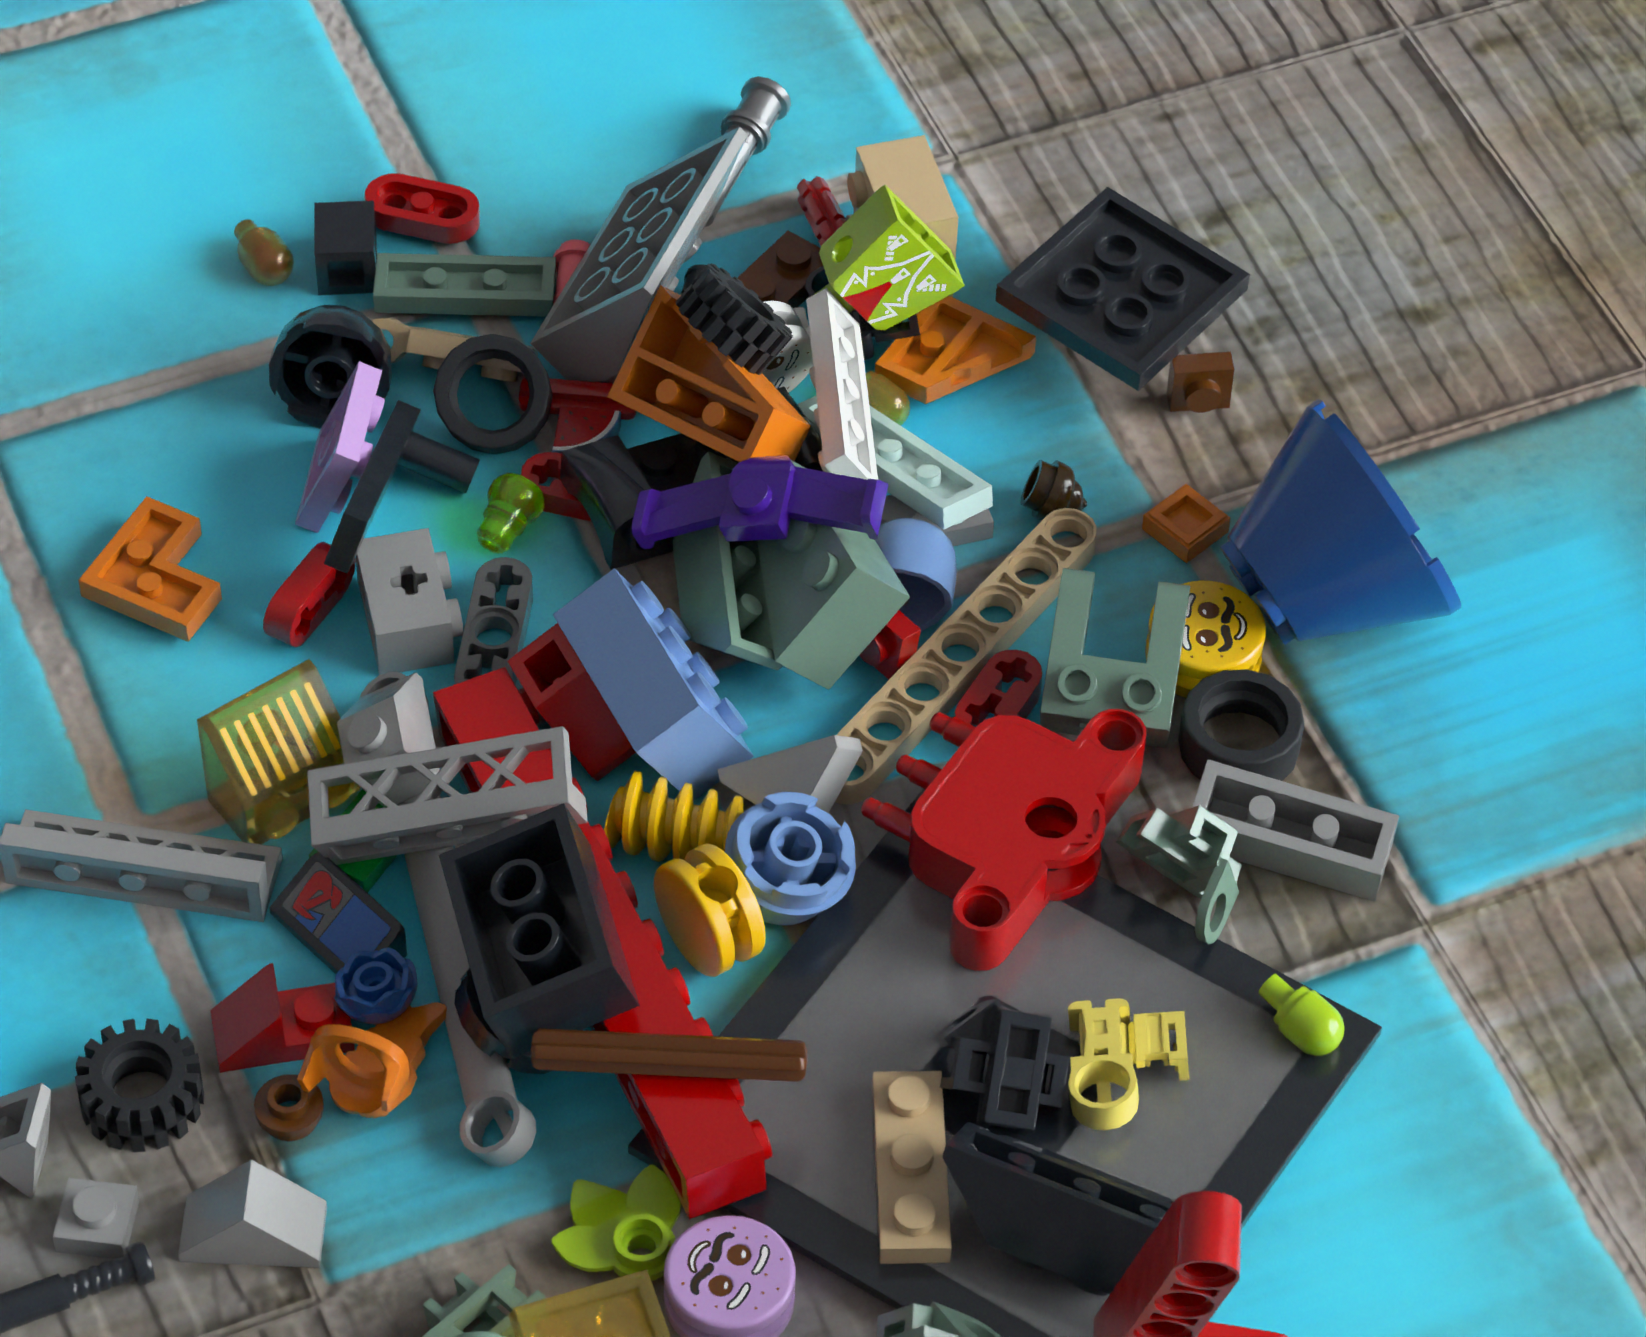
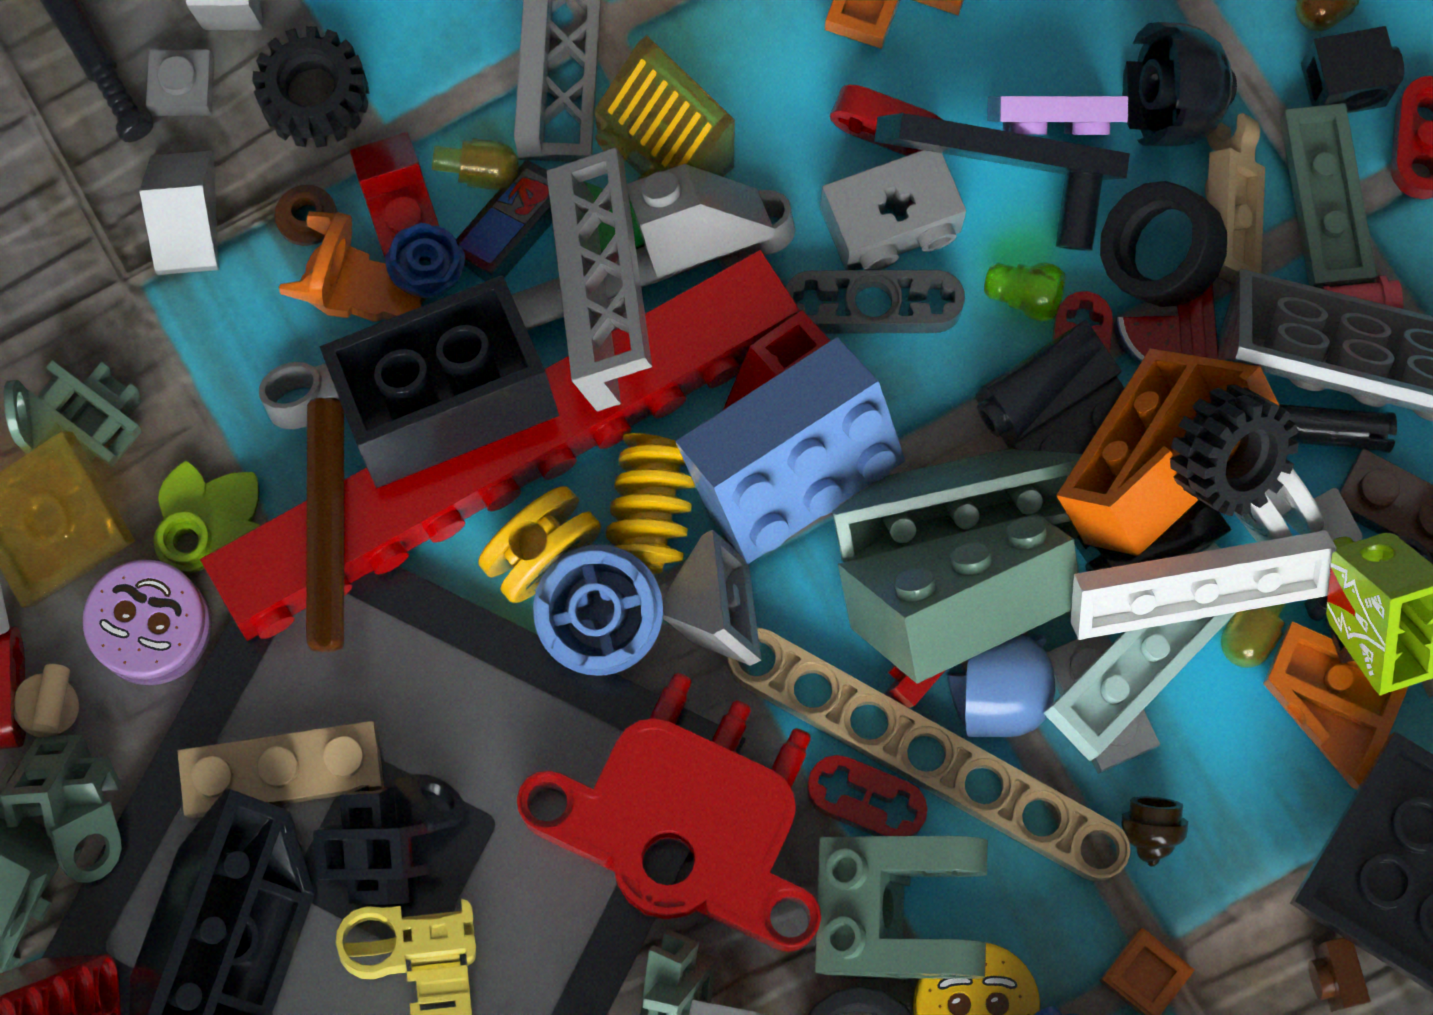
camera: 85 degrees right, 25 degrees up
(266, 940) = (479, 163): none -> clear yellow cylinder
(760, 503) = (1001, 514): dark purple plate -> none

